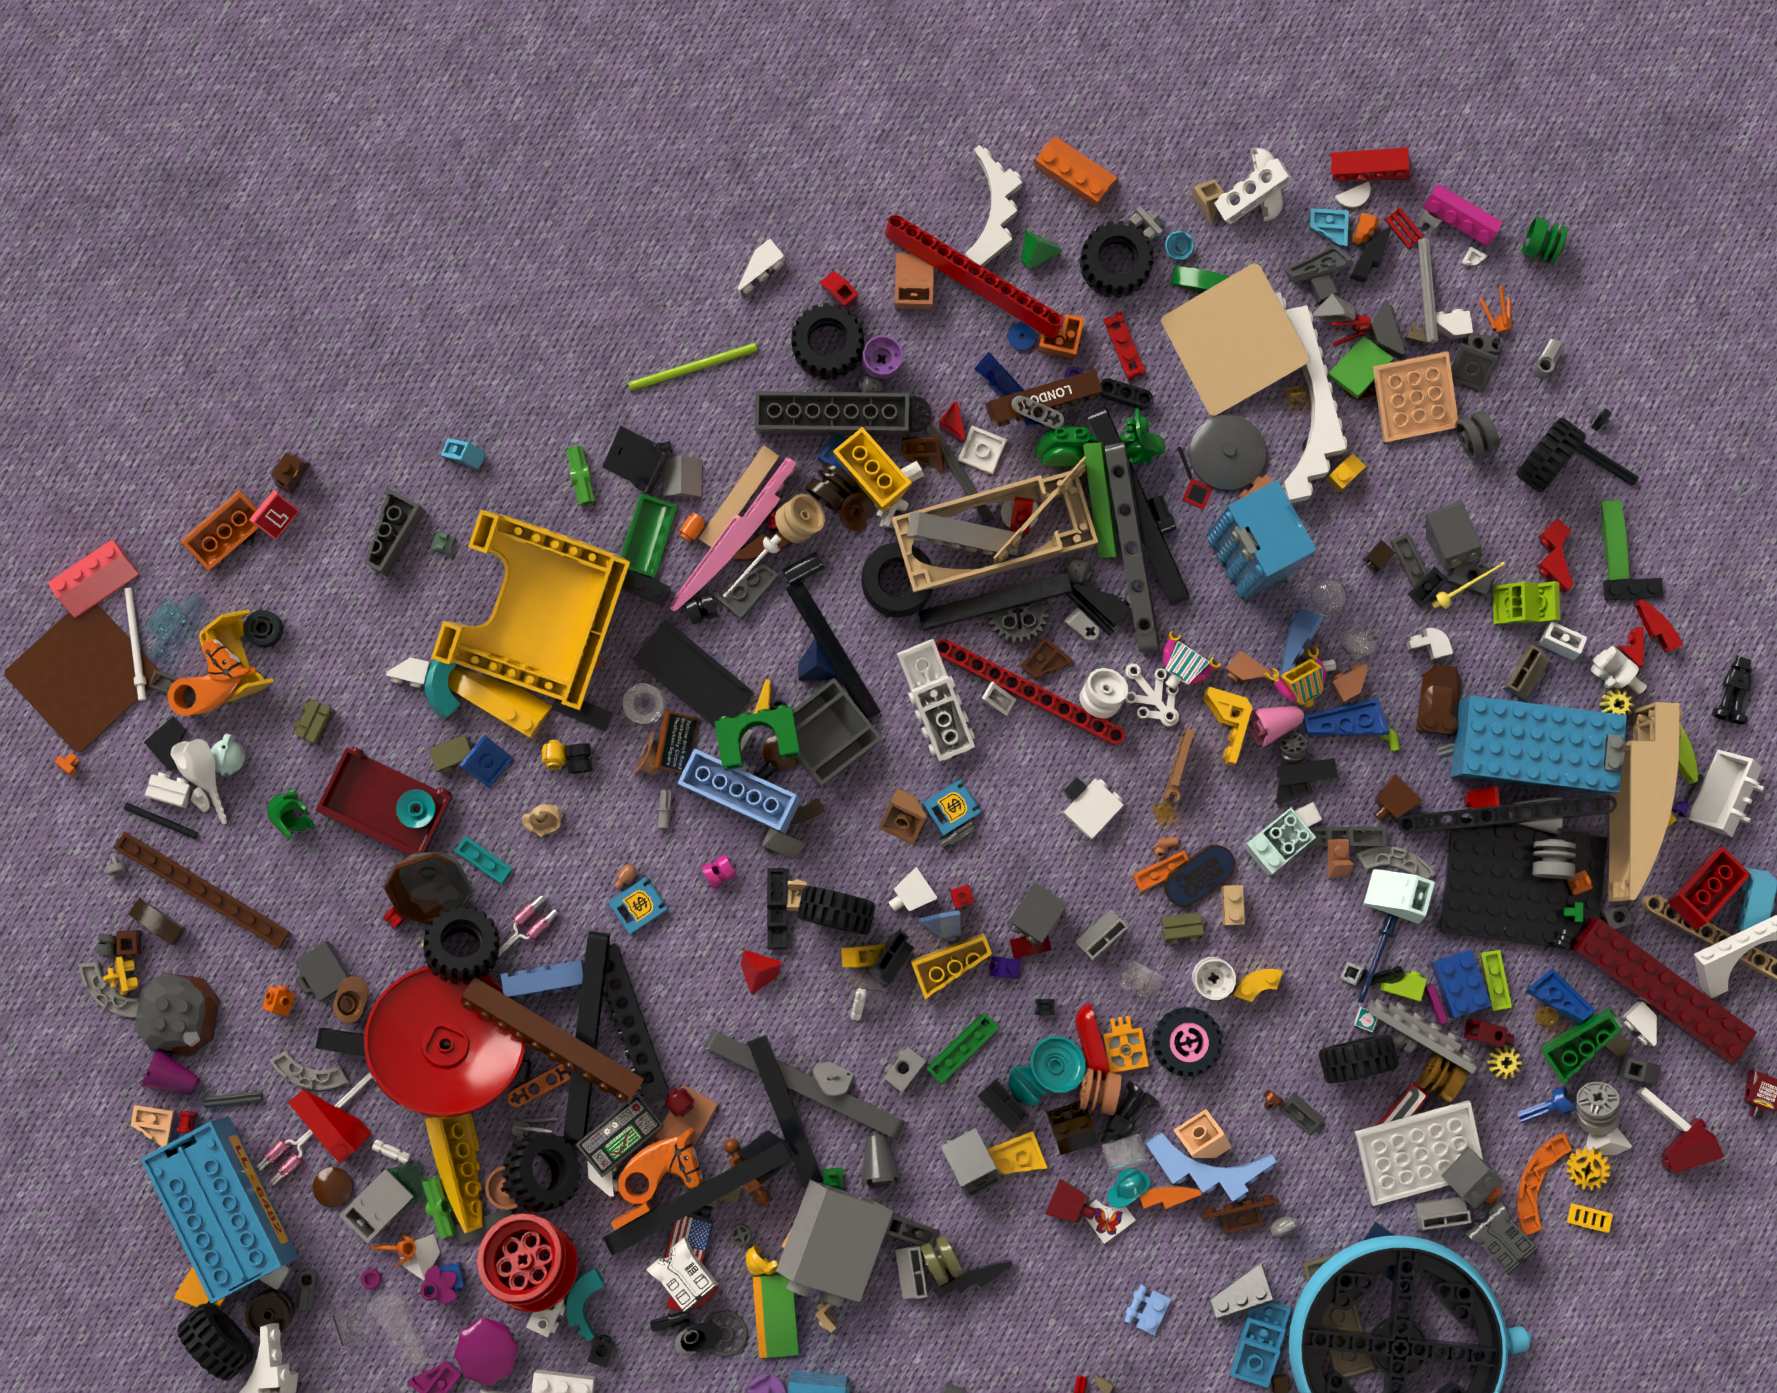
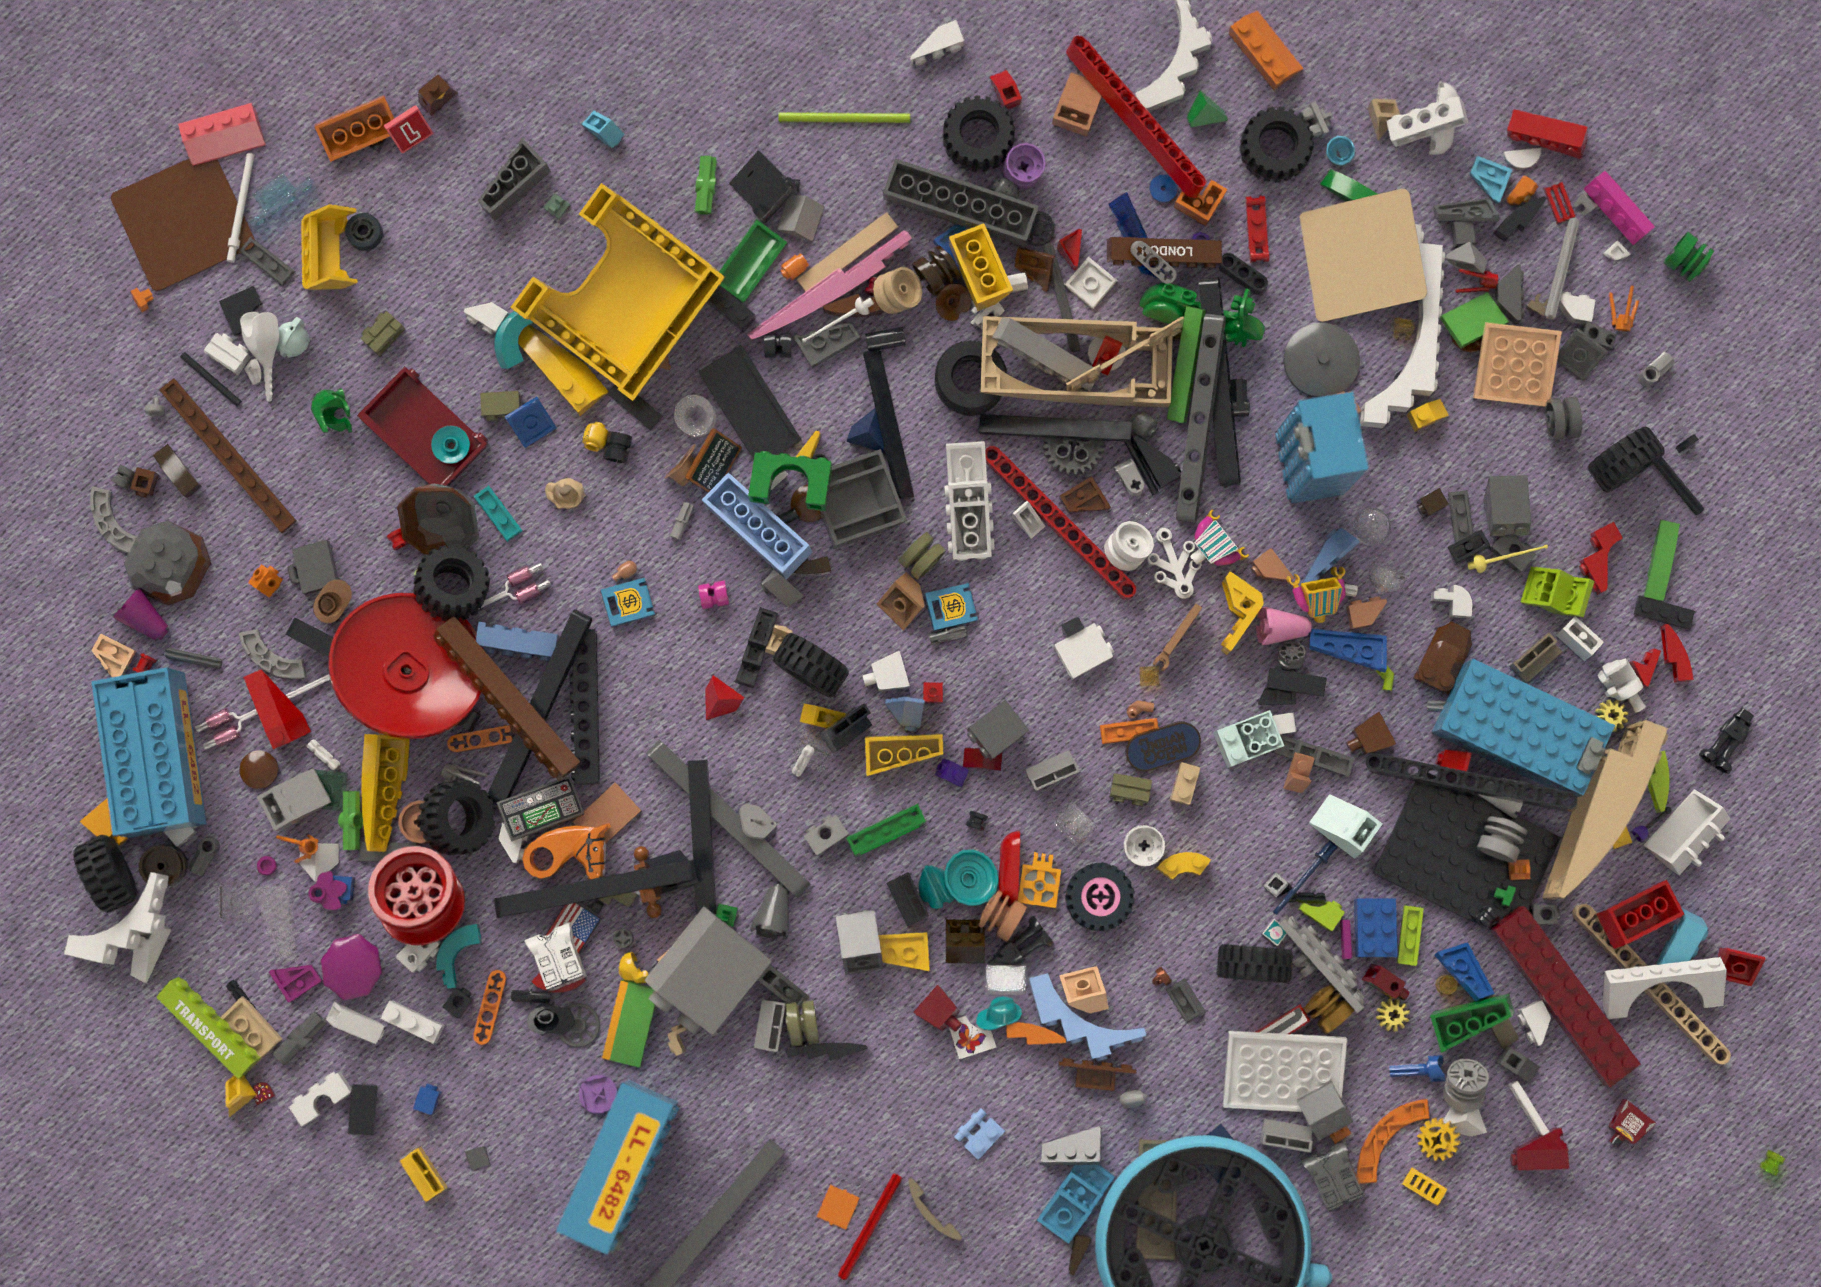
camera: 15 degrees right, 0 degrees up
(121, 967) = (130, 502): yellow hips -> none
(216, 688) = (298, 272): orange animal -> none
(631, 1214) = (527, 885): orange tile -> none
(633, 1344) = (487, 1006): none -> orange beam
(679, 1102) = (606, 796): dark red head -> none
(909, 768) = (922, 555): none -> olive wheel
(1196, 492) = (1280, 388): piece -> none
(1394, 857) = (1353, 790): light grey tile -> none

